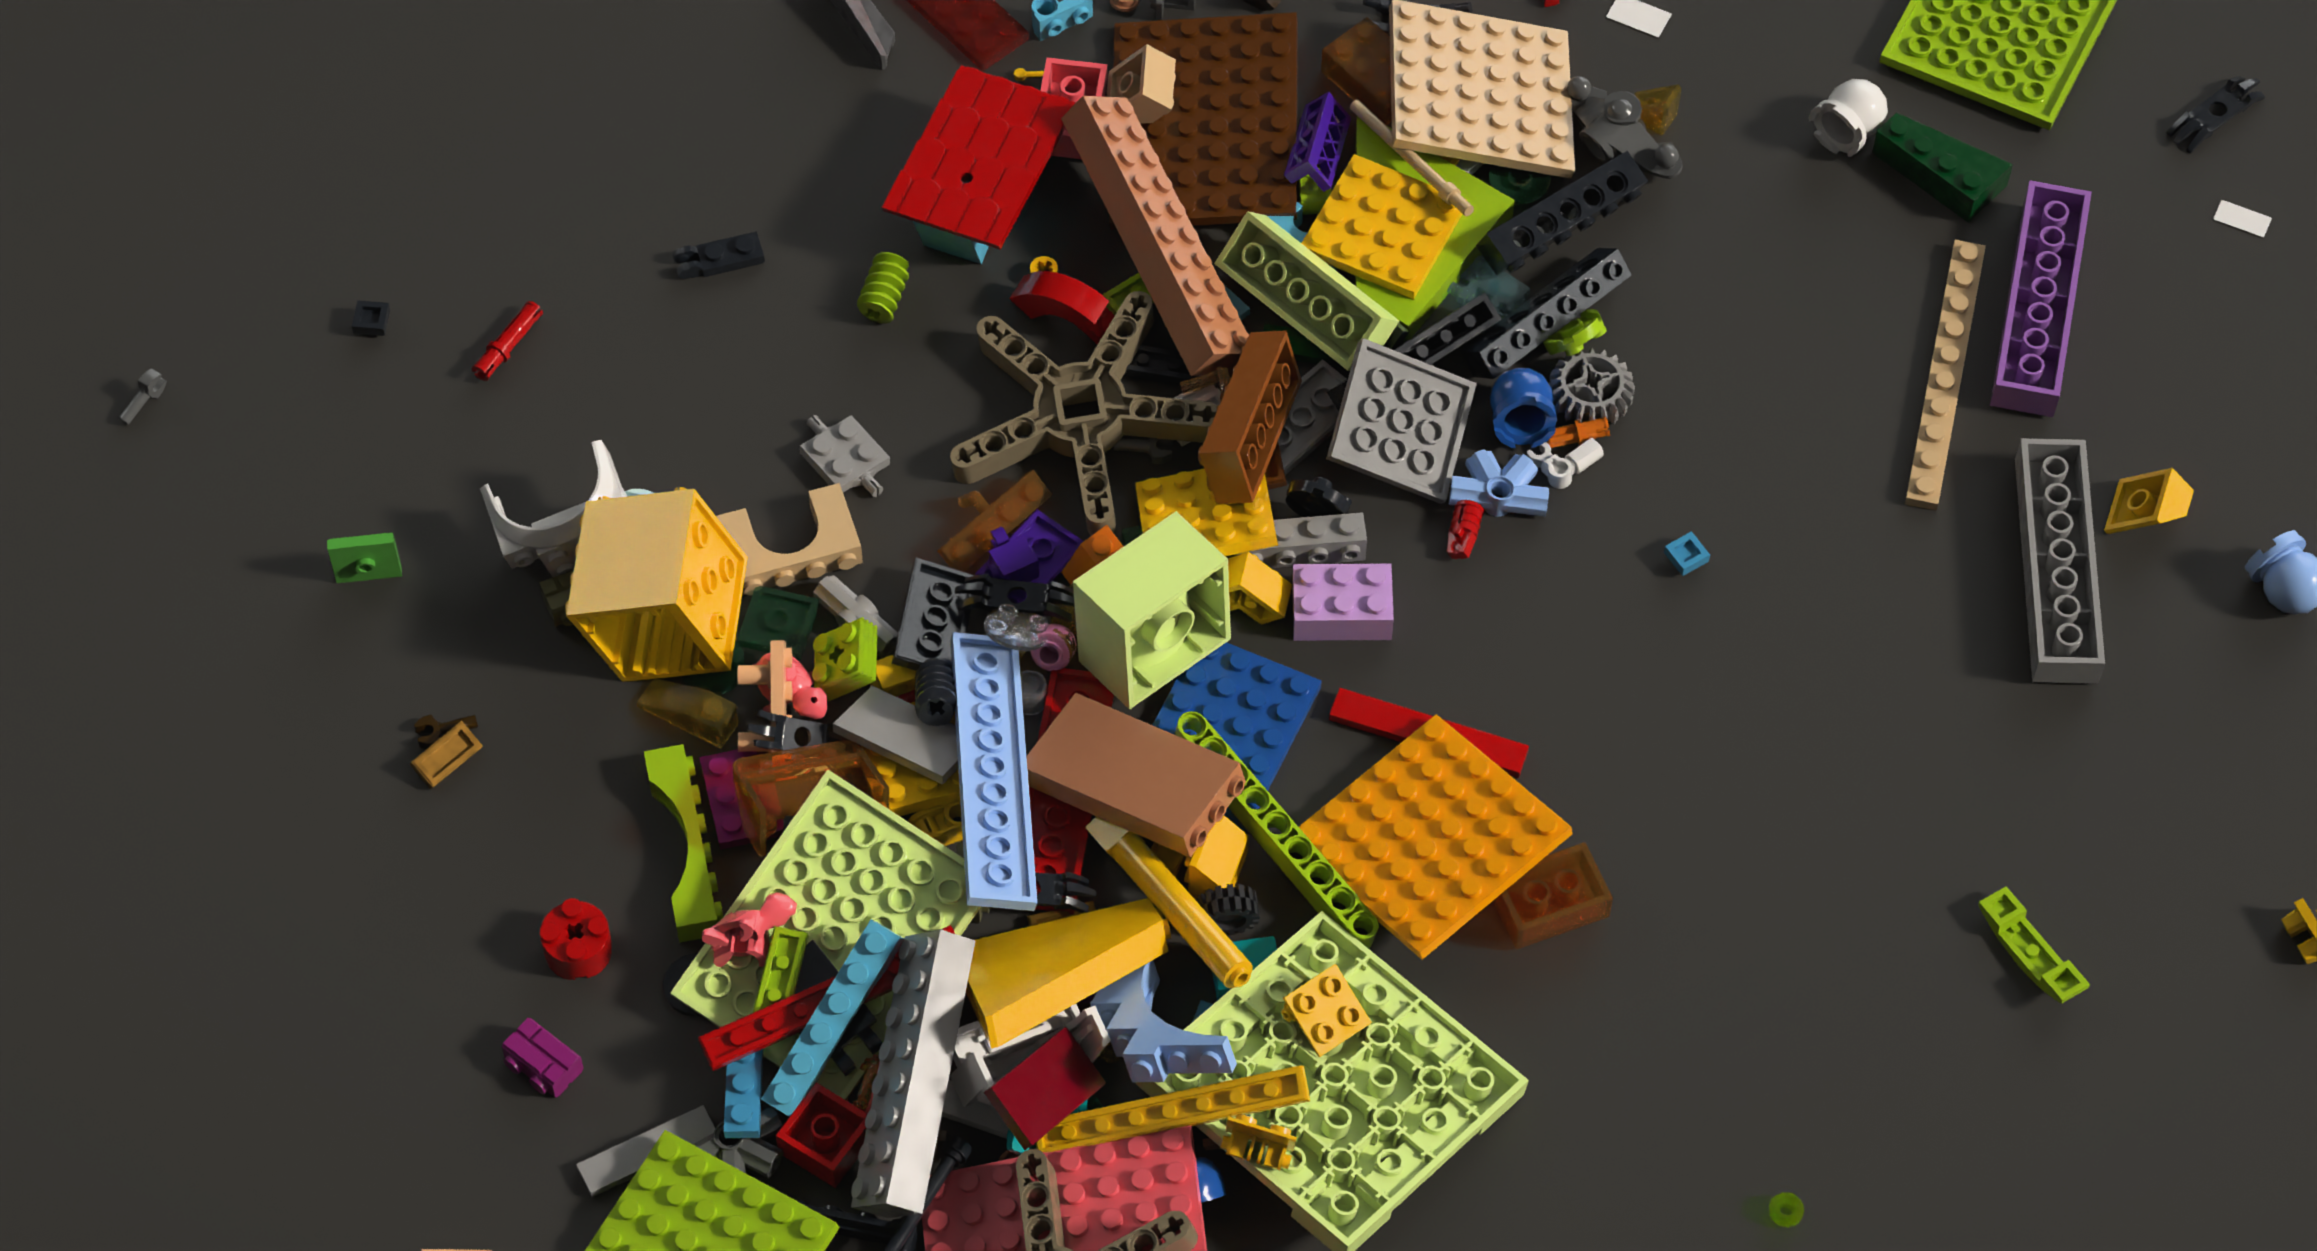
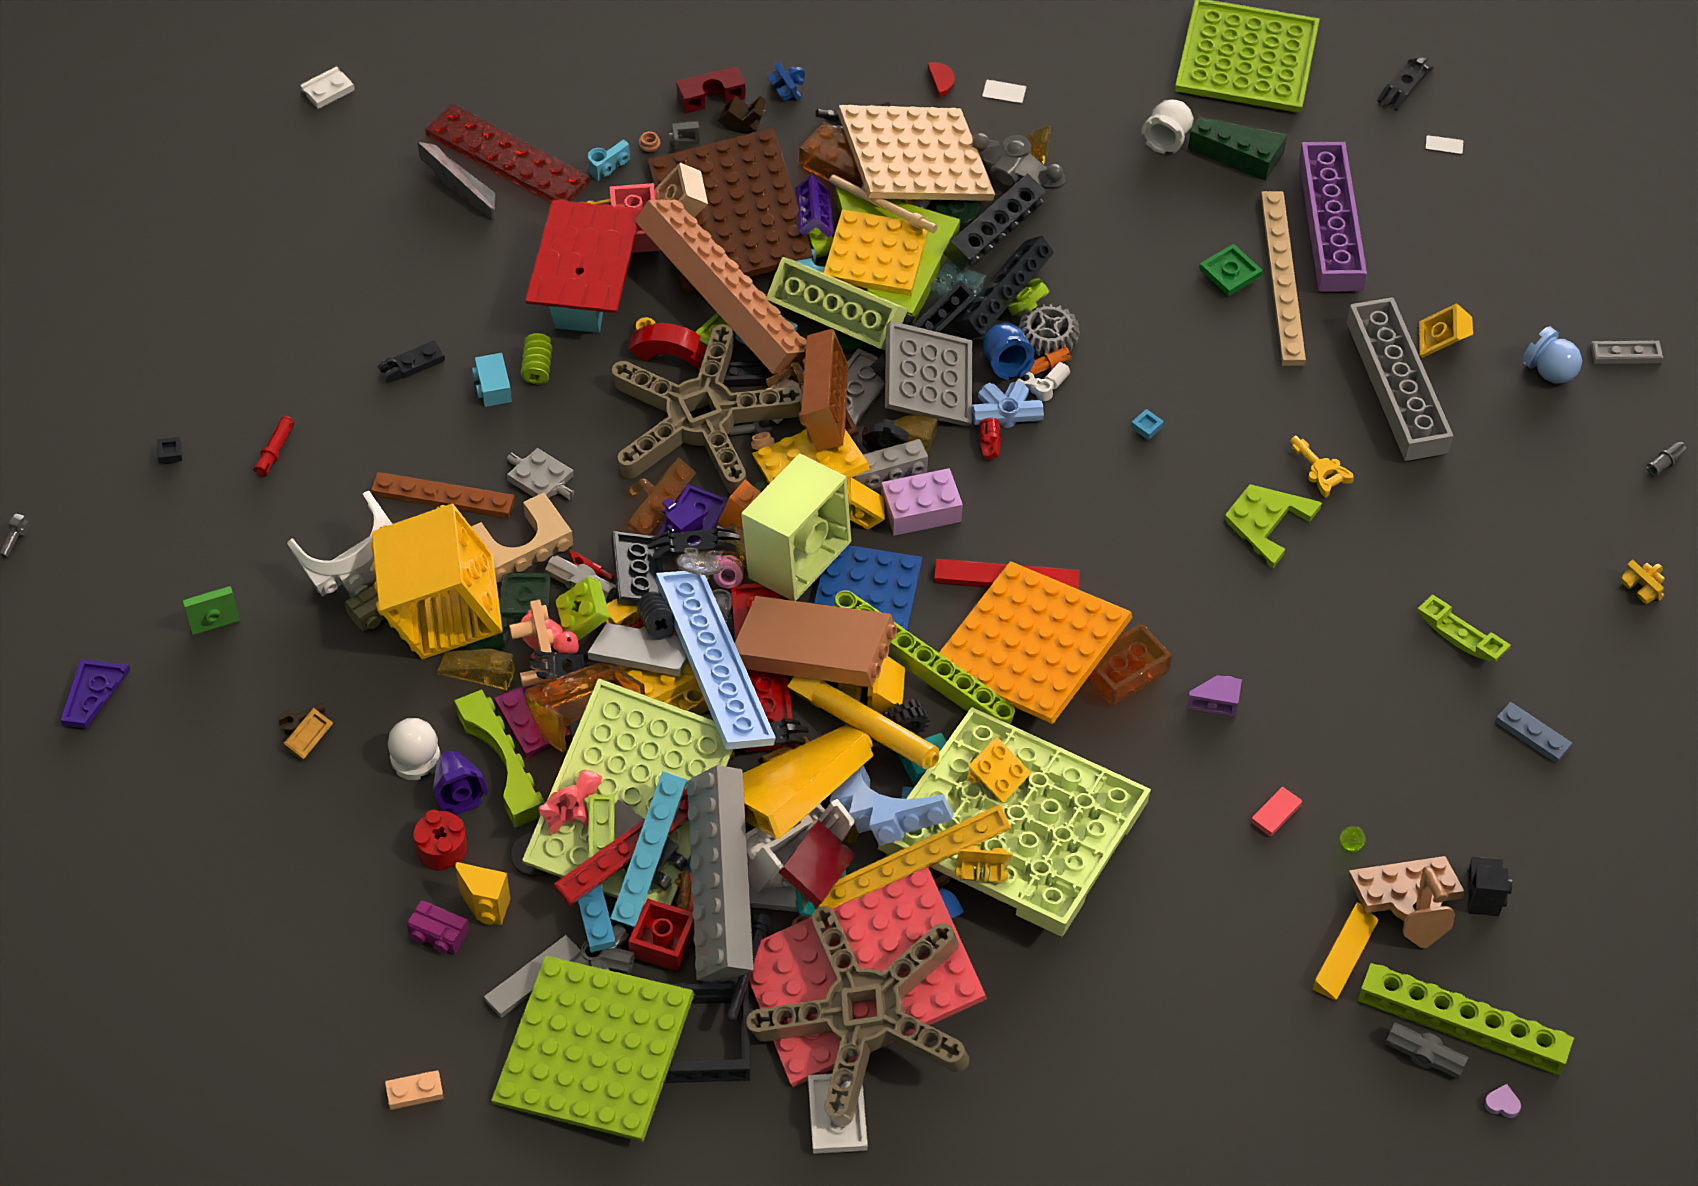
camera: 15 degrees left, 5 degrees down
(187, 634) = (91, 690): none -> dark purple wing
(574, 807) = (413, 748): none -> white tile
(614, 1026) = (484, 892): none -> yellow slope
(618, 866) = (458, 783): none -> dark purple cone
(710, 456) = (439, 494): none -> dark orange plate
(818, 305) = (493, 380): none -> medium azure brick
(879, 601) = (597, 568): none -> red hand
(1153, 468) = (761, 440): none -> light nougat plate
(1368, 495) = (920, 428): none -> clear yellow slope
(1662, 966) = (1216, 696): none -> medium lavender slope
(1694, 1147) = (1276, 811): none -> coral tile
(1806, 713) = (1260, 511): none -> lime wing
(1874, 348) = (1230, 269): none -> green plate
(1911, 669) = (1322, 468): none -> yellow piece
(2086, 1114) = (1533, 732): none -> sand blue plate

